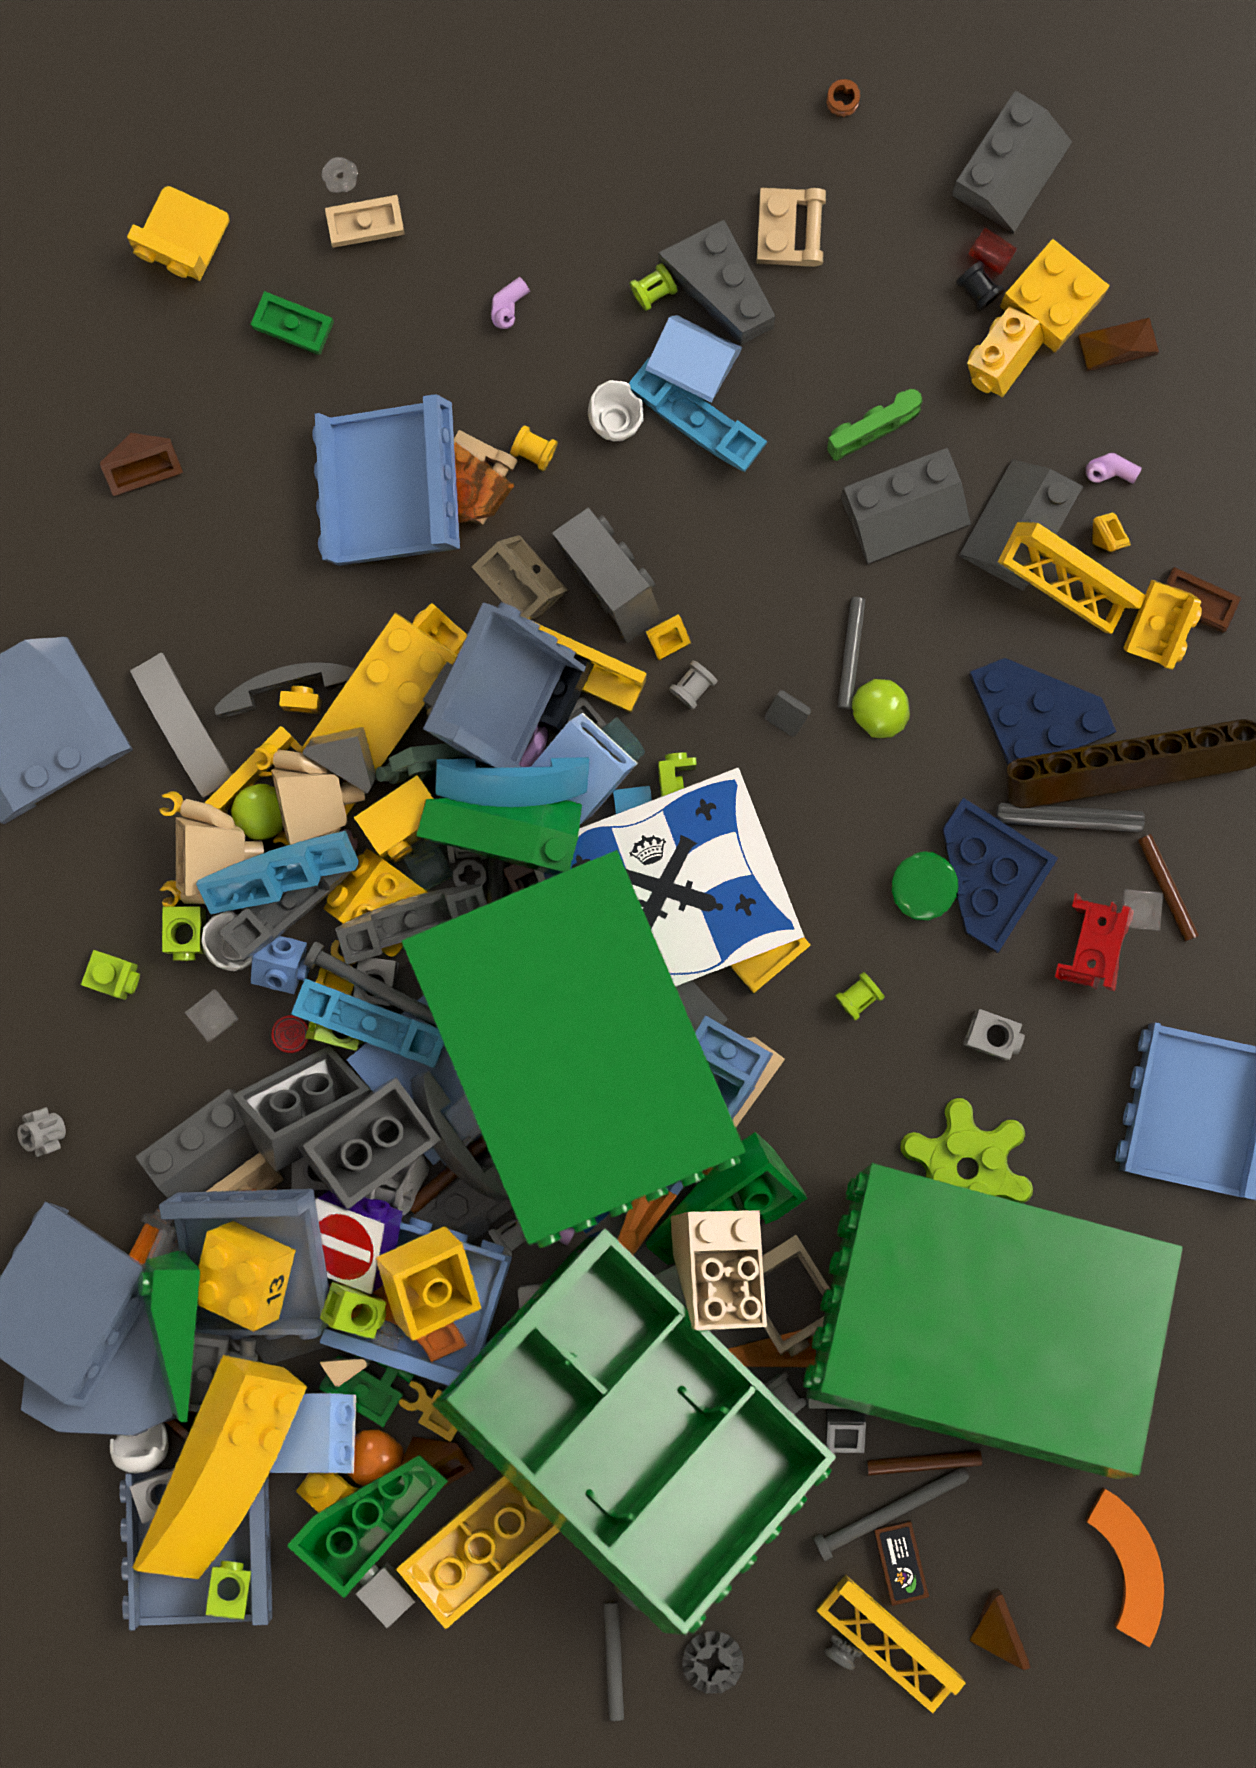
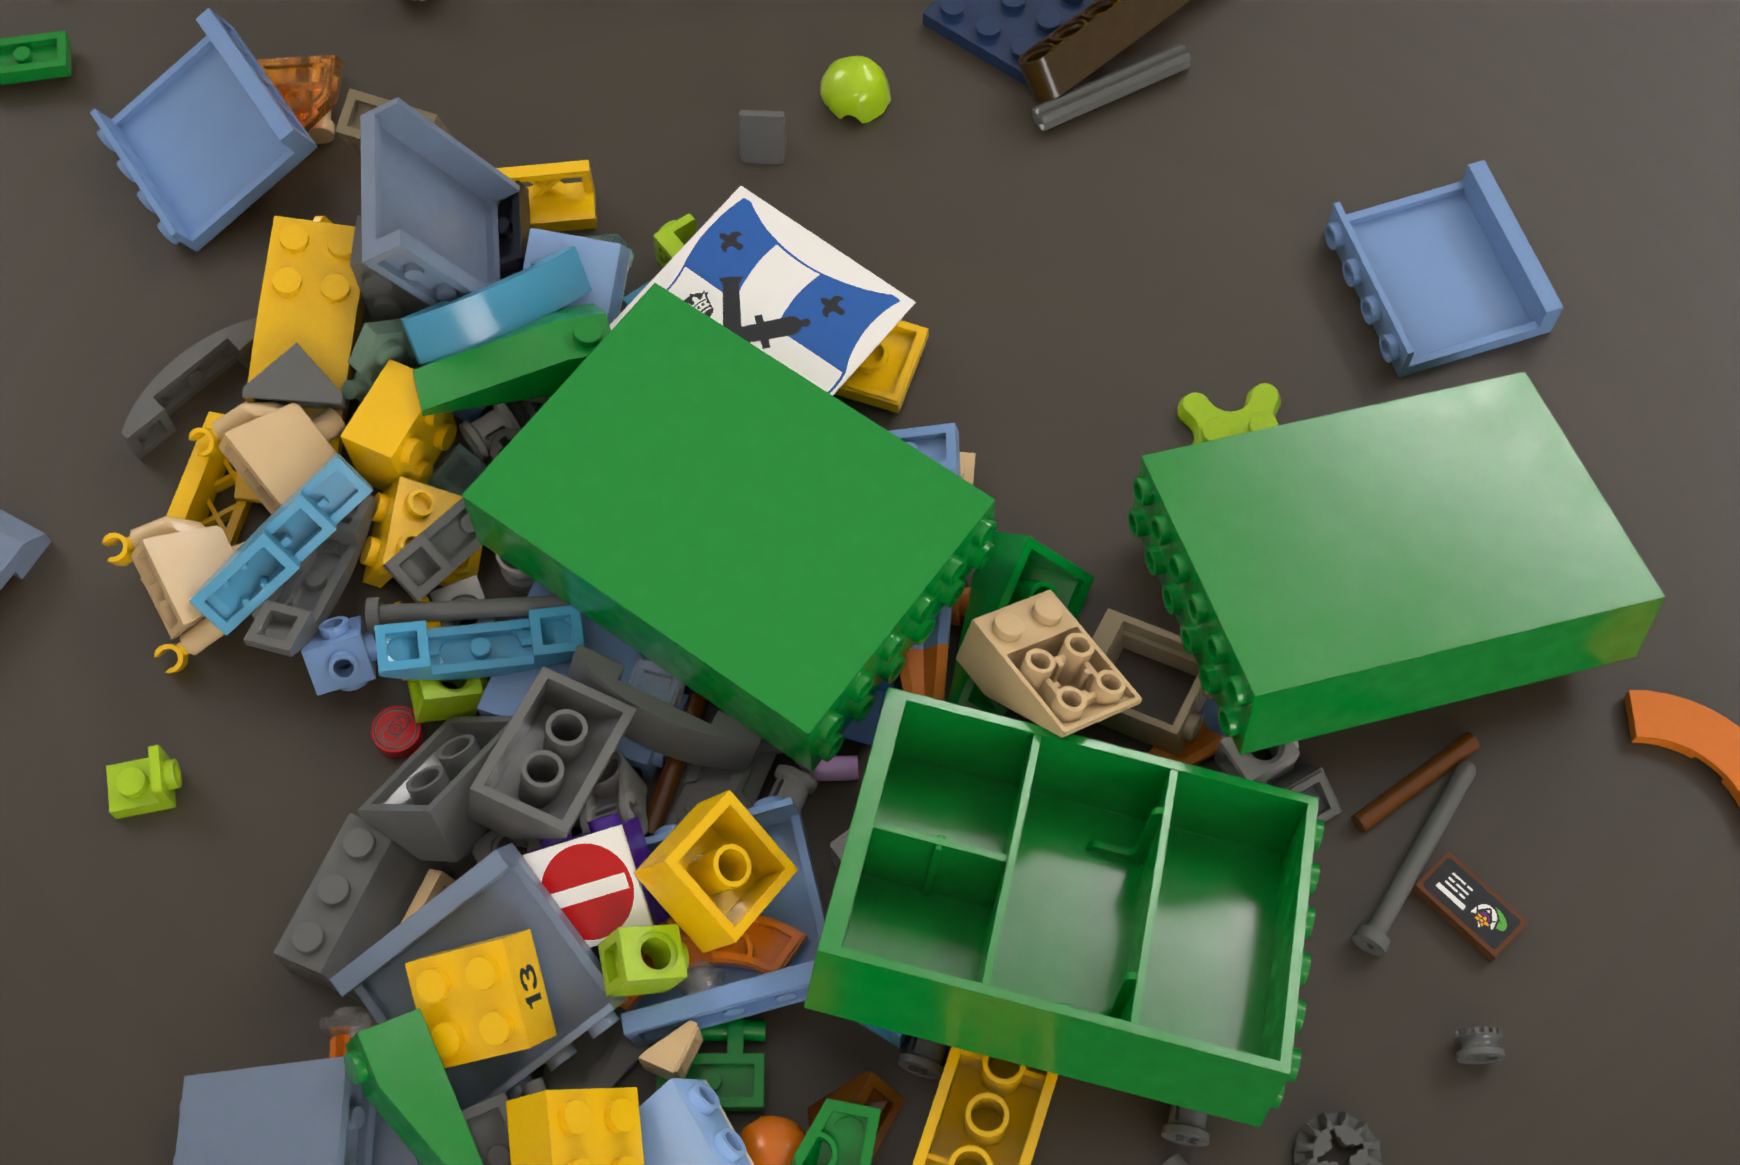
camera: 30 degrees left, 20 degrees down
(41, 1132) = (140, 1002): light grey gear -> none
(175, 917) = (196, 671): lime brick -> none
(181, 725) = (90, 477): light grey slope -> none
(212, 1015) = (290, 759): clear plate -> none
(217, 949) = (265, 674): white hair -> none
(257, 812) = (232, 507): lime hair -> none
(300, 700) = (220, 387): yellow plate -> none
(431, 1416) = (825, 1051): yellow plate -> none
(533, 448) = (349, 41): yellow bush -> none
(609, 572) = (497, 101): dark grey wedge -> none
(668, 637) = (593, 133): yellow slope -> none
(693, 684) = (646, 161): light grey bush -> none
(851, 652) = (792, 60): dark grey bar -> none
(859, 996) = (1013, 350): lime bush -> none
(898, 1633) = (1527, 983): yellow fence -> none
(924, 886) = (1009, 213): green piece -> none
(977, 1035) = (1171, 327): light grey brick -> none
(994, 872) = (1069, 170): dark blue plate -> none
(997, 1632) = (1635, 912): reddish brown slope -> none
(1097, 944) = (1227, 172): red piece -> none
(1146, 908) = (1242, 126): clear plate -> none
(1168, 887) = (1253, 98): reddish brown bar -> none

